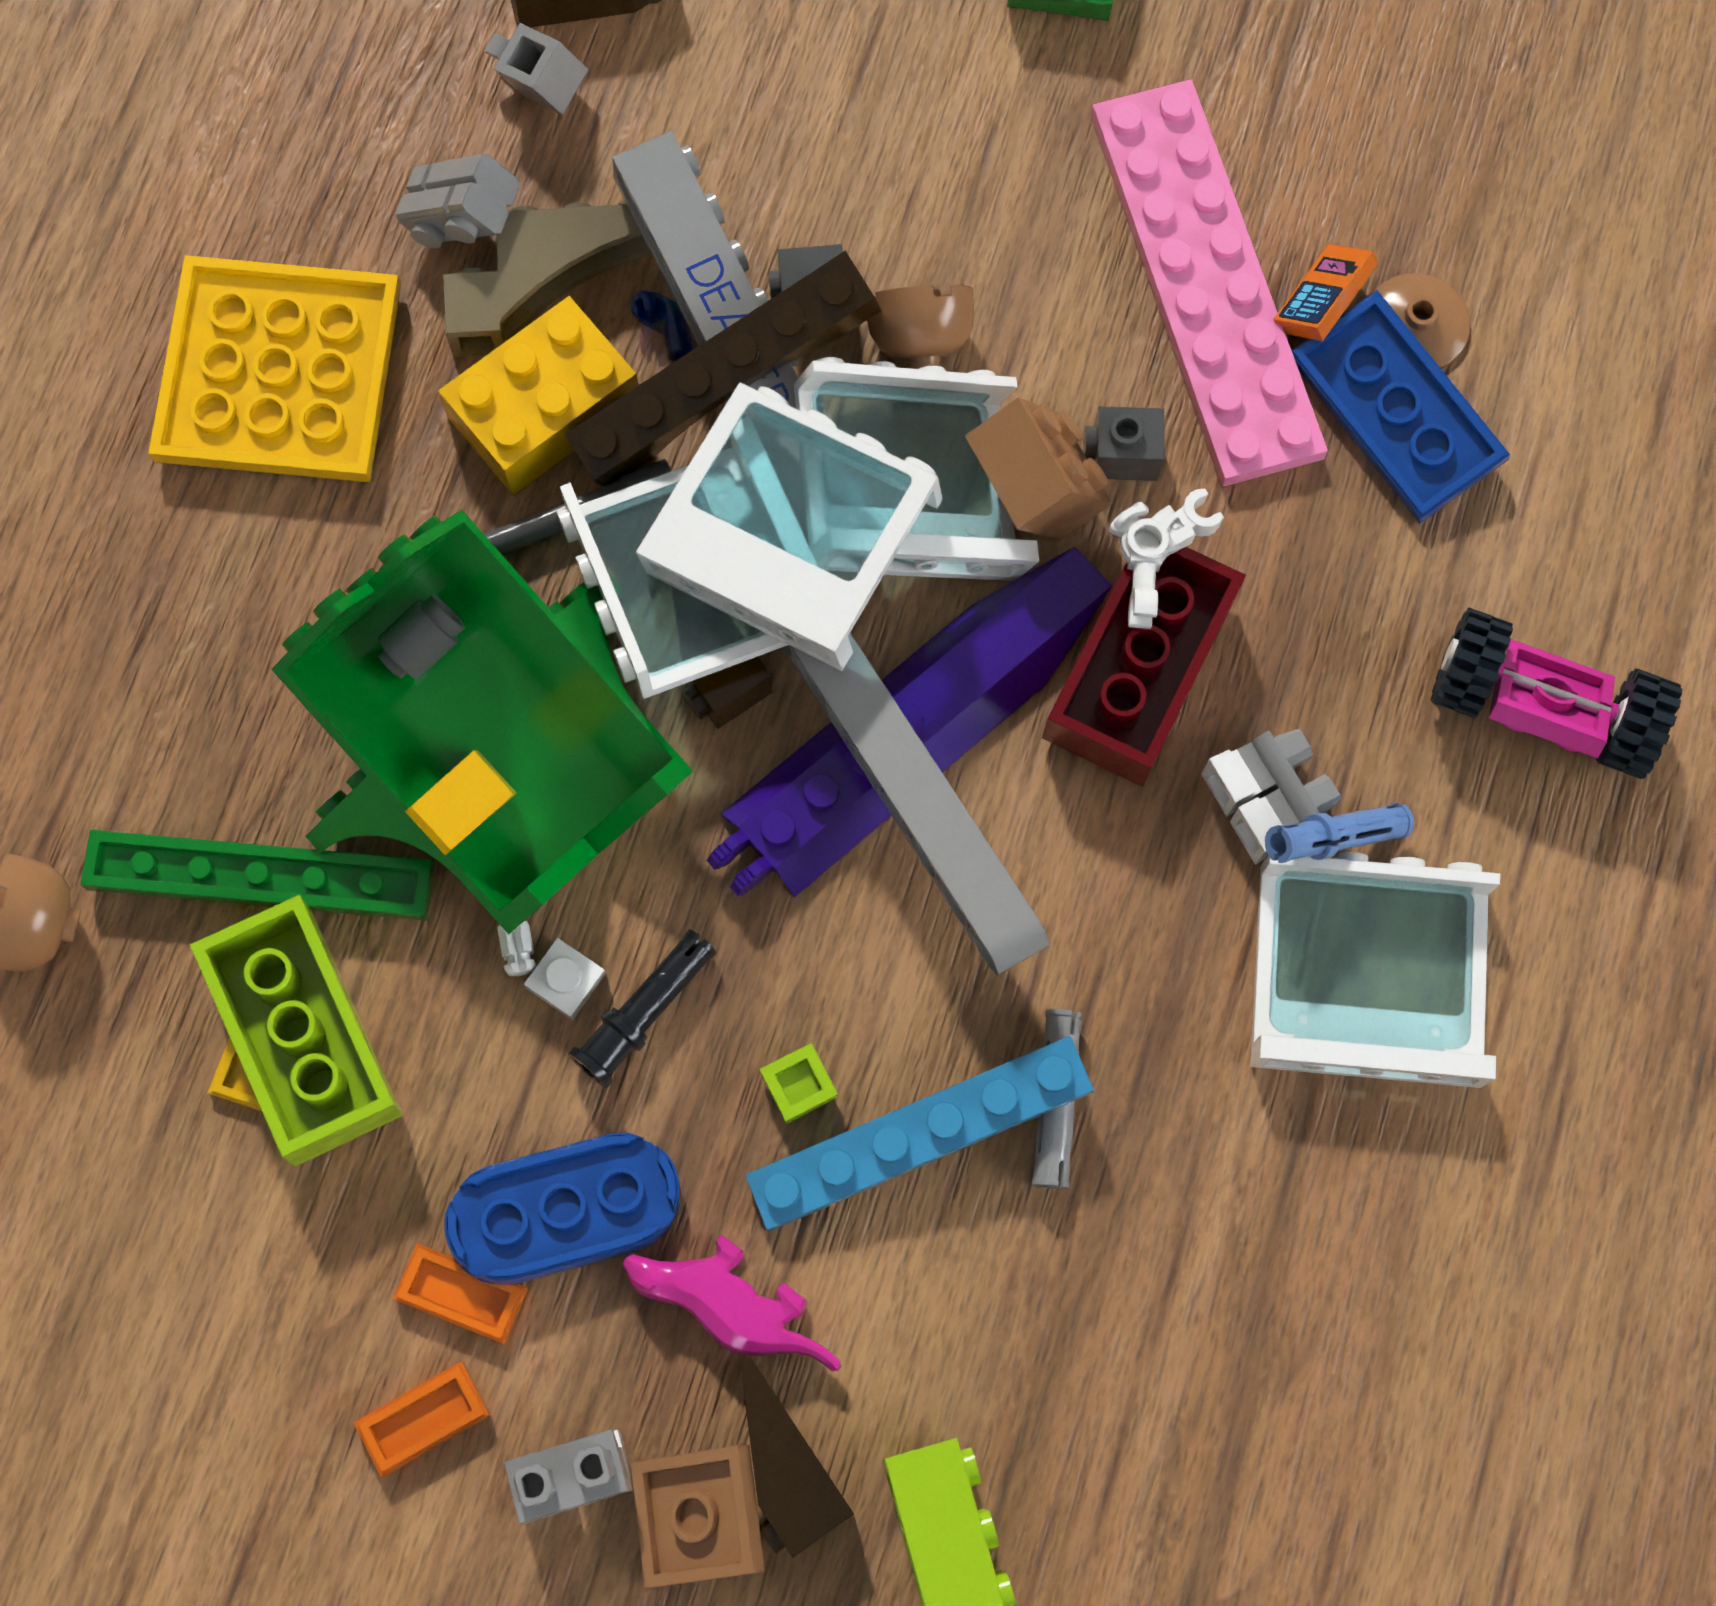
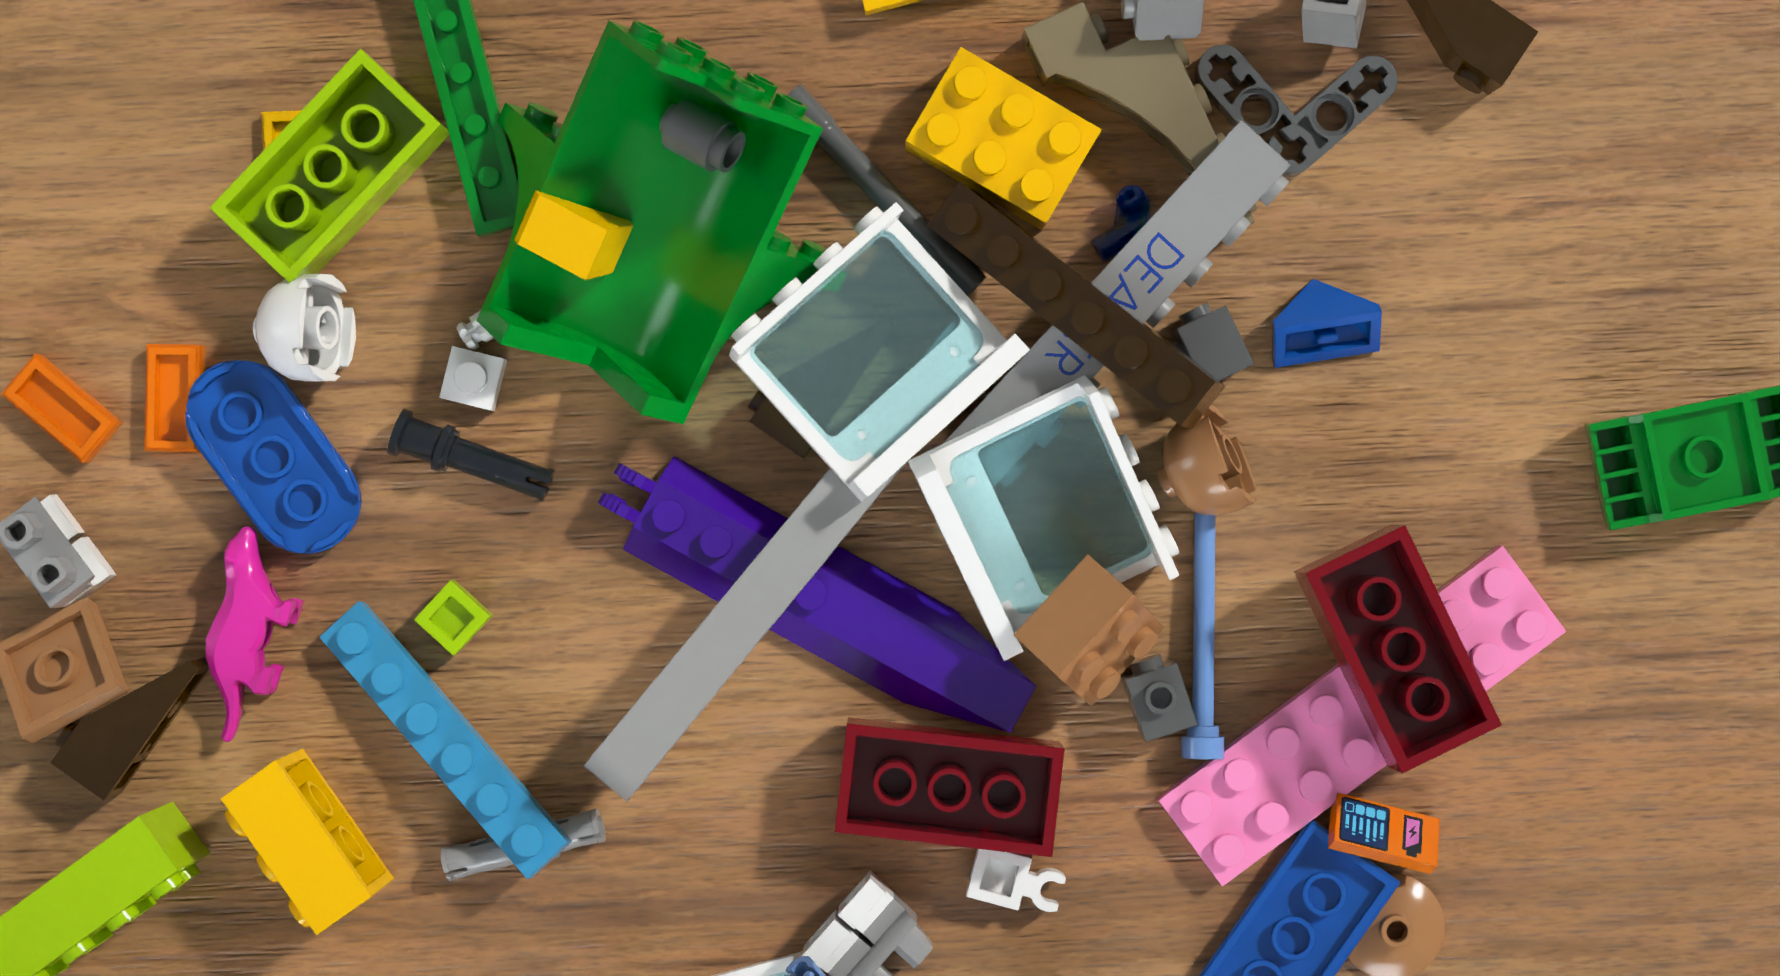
camera: 75 degrees right, 15 degrees up
(444, 1122) = (306, 328): none -> white cylinder
(621, 103) = (1303, 125): none -> dark grey beam
(787, 522) = (934, 427): panel -> none
(832, 183) = (1325, 326): none -> blue slope
(976, 1308) = (306, 840): none -> yellow brick
(1150, 541) = (1043, 760): white piece -> none
(1154, 206) = (1397, 648): none -> dark red brick
(1180, 419) = (1203, 739): none -> medium blue piece
(1252, 642) = (1006, 877): none -> white plate

